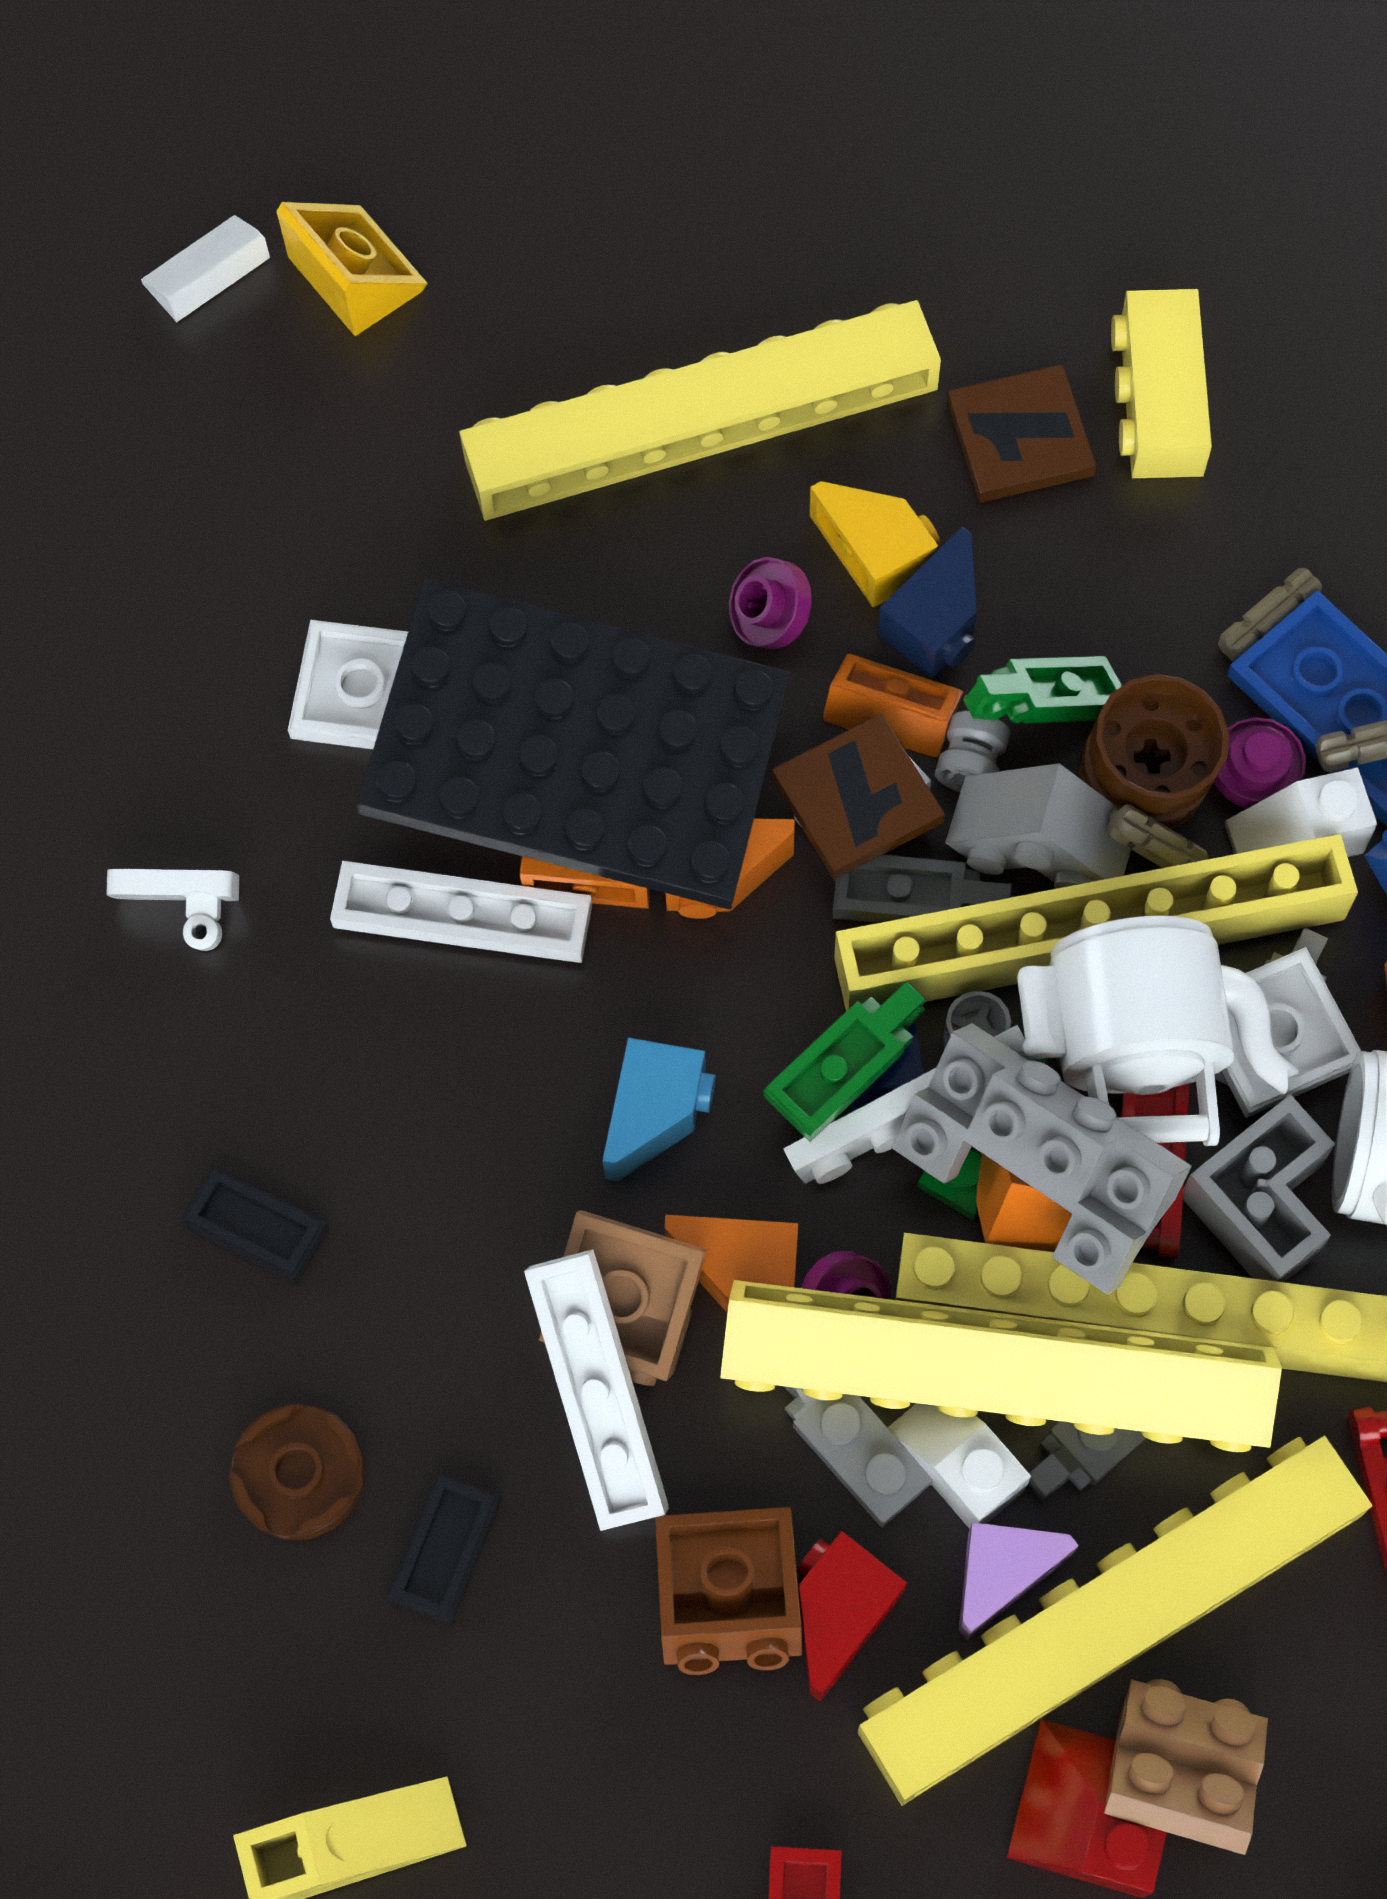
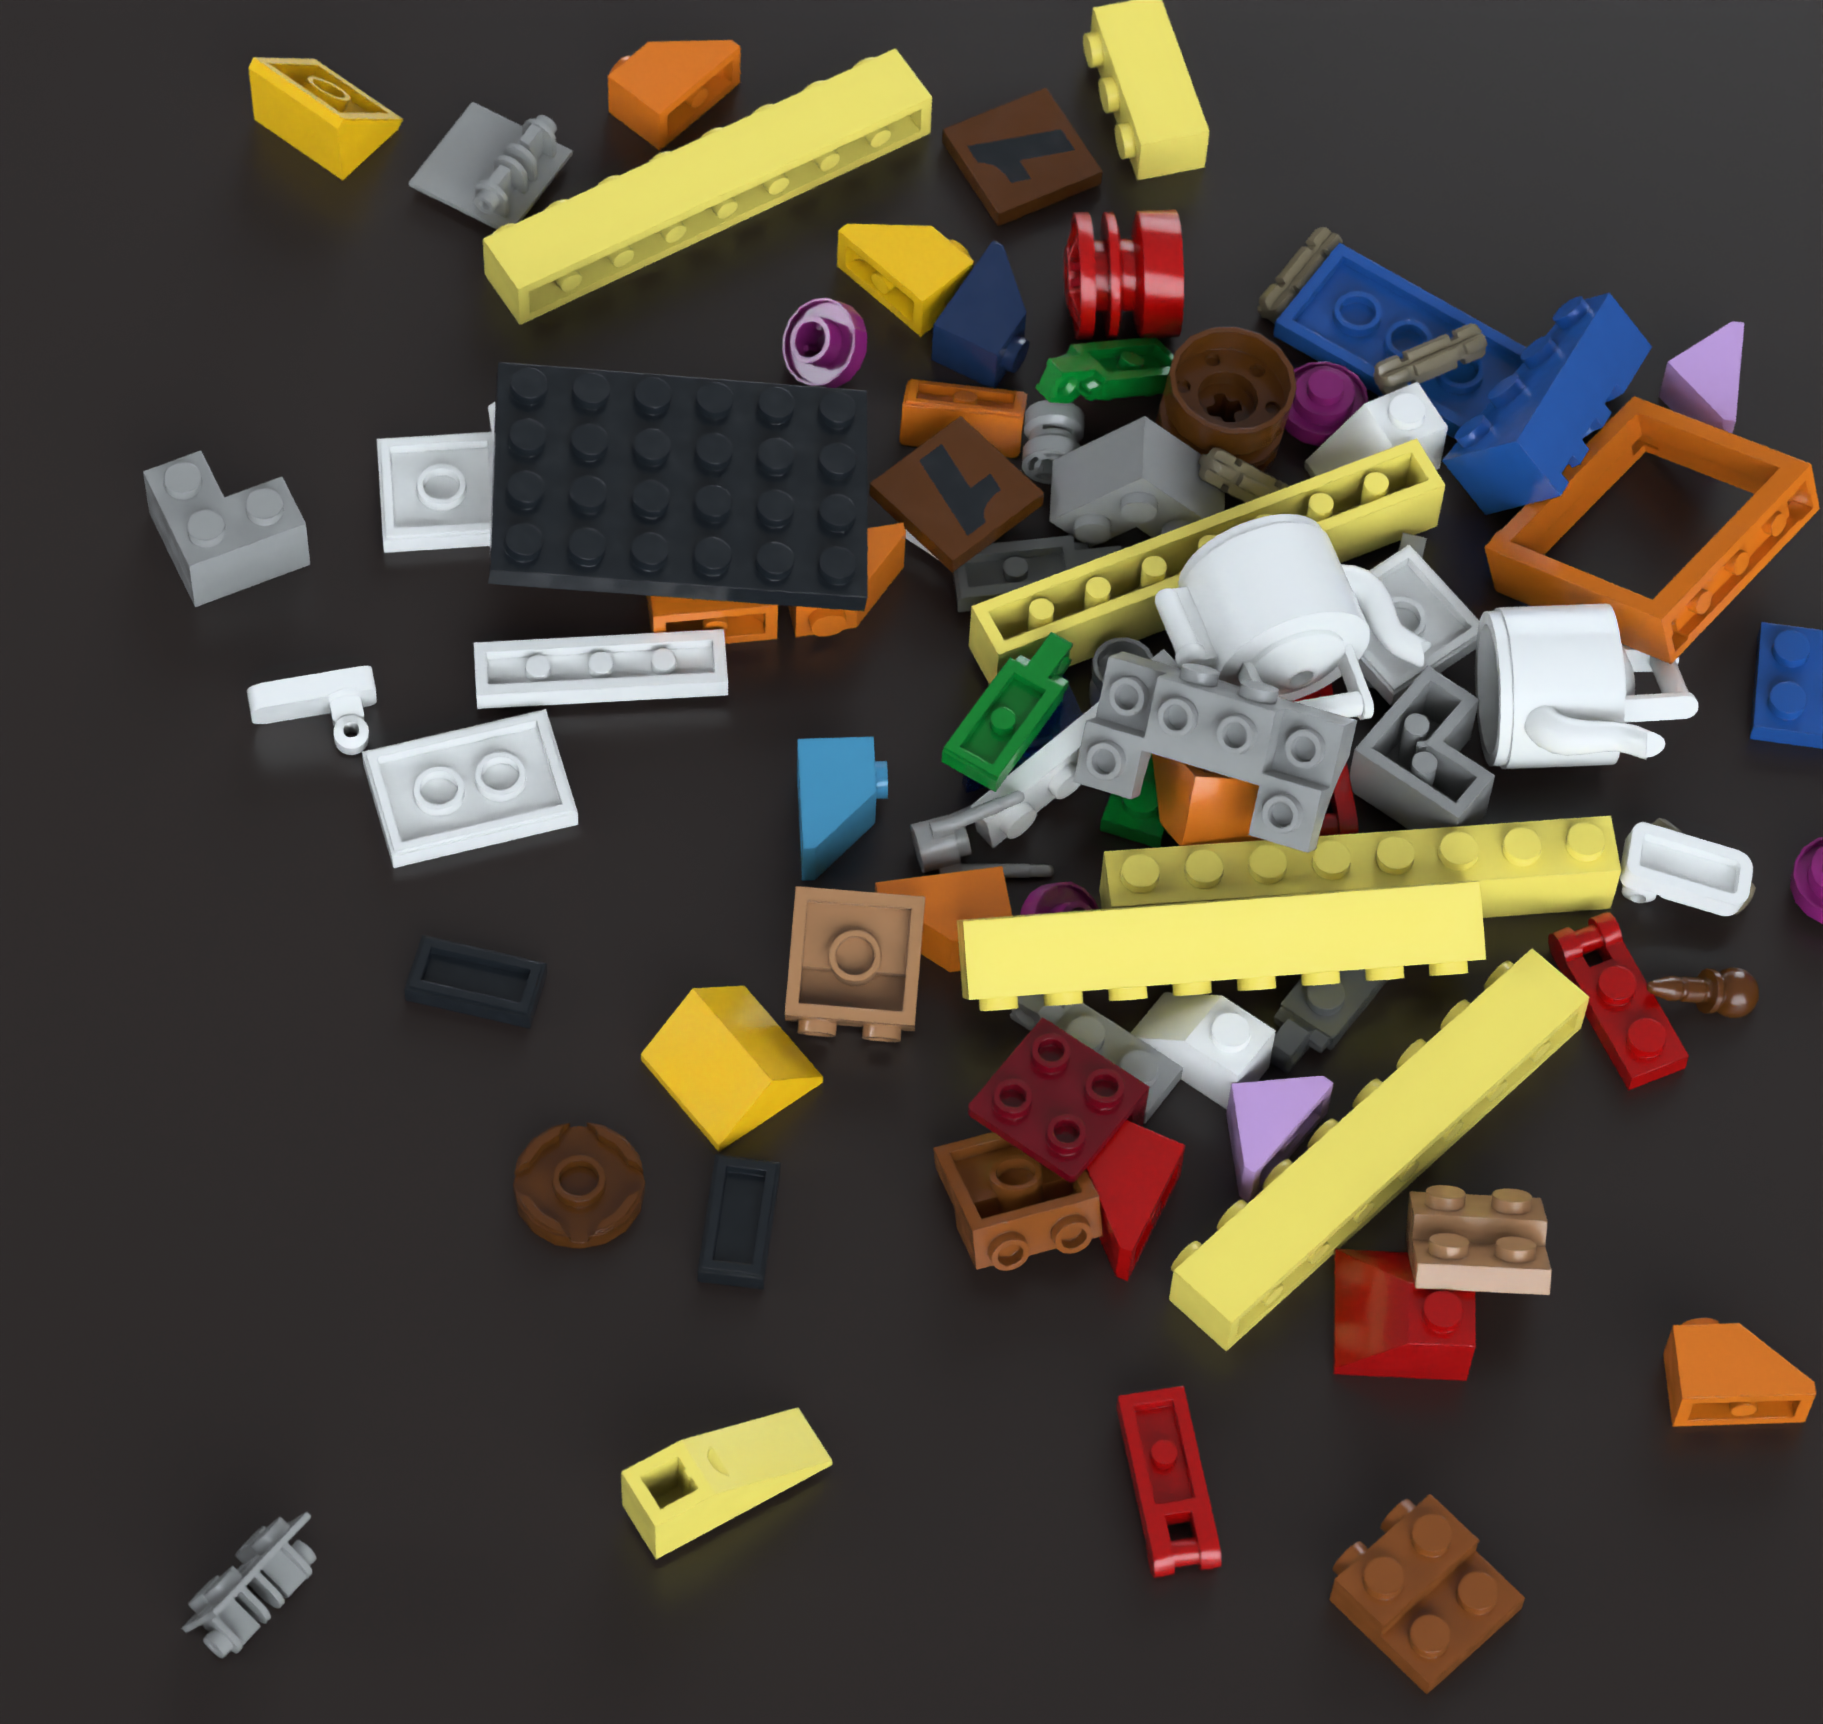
camera: 20 degrees left, 10 degrees down
(131, 702) = (223, 540): none -> light grey brick
(207, 267) = (177, 139): white slope -> none
(303, 1012) = (470, 788): none -> white tile
(479, 1370) = (728, 1063): none -> yellow slope
(498, 350) = (492, 166): none -> light grey hinge
(596, 1390) = (853, 1041): white plate -> none
(691, 297) = (671, 85): none -> orange slope
(753, 1171) = (945, 839): none -> light grey plant
(788, 1505) = (1059, 1100): none -> dark red bracket
(1087, 589) = (1126, 274): none -> red wheel

